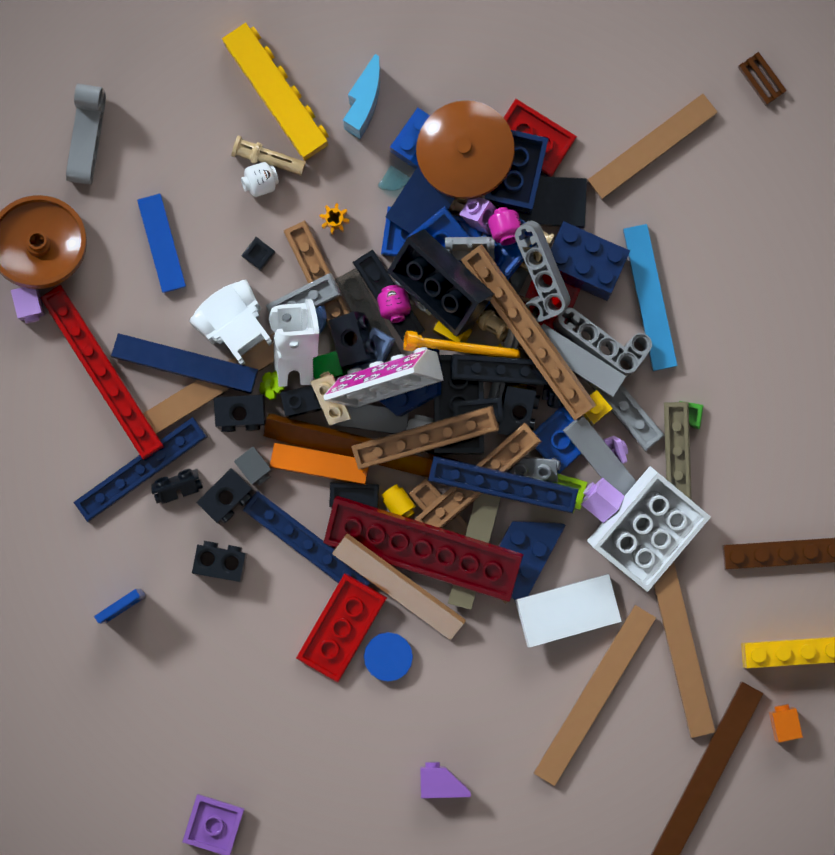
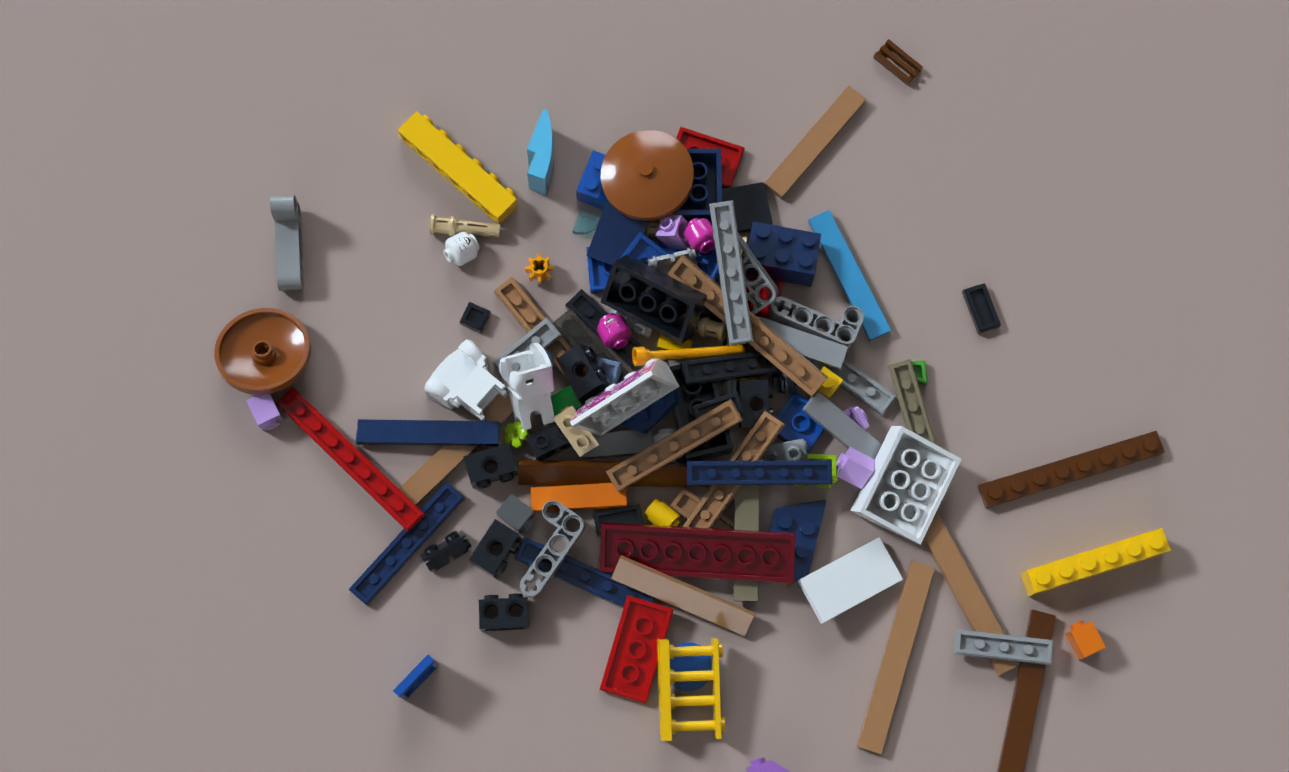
camera: 20 degrees left, 10 degrees down
(161, 243) = (381, 328): blue tile -> none
(276, 513) = (547, 552): none -> light grey beam
(360, 687) = (668, 701): none -> yellow fence
(524, 276) = (731, 273): none -> light grey tile
(702, 712) = (1003, 647): none -> light grey tile
(776, 363) = (981, 308): none -> black tile

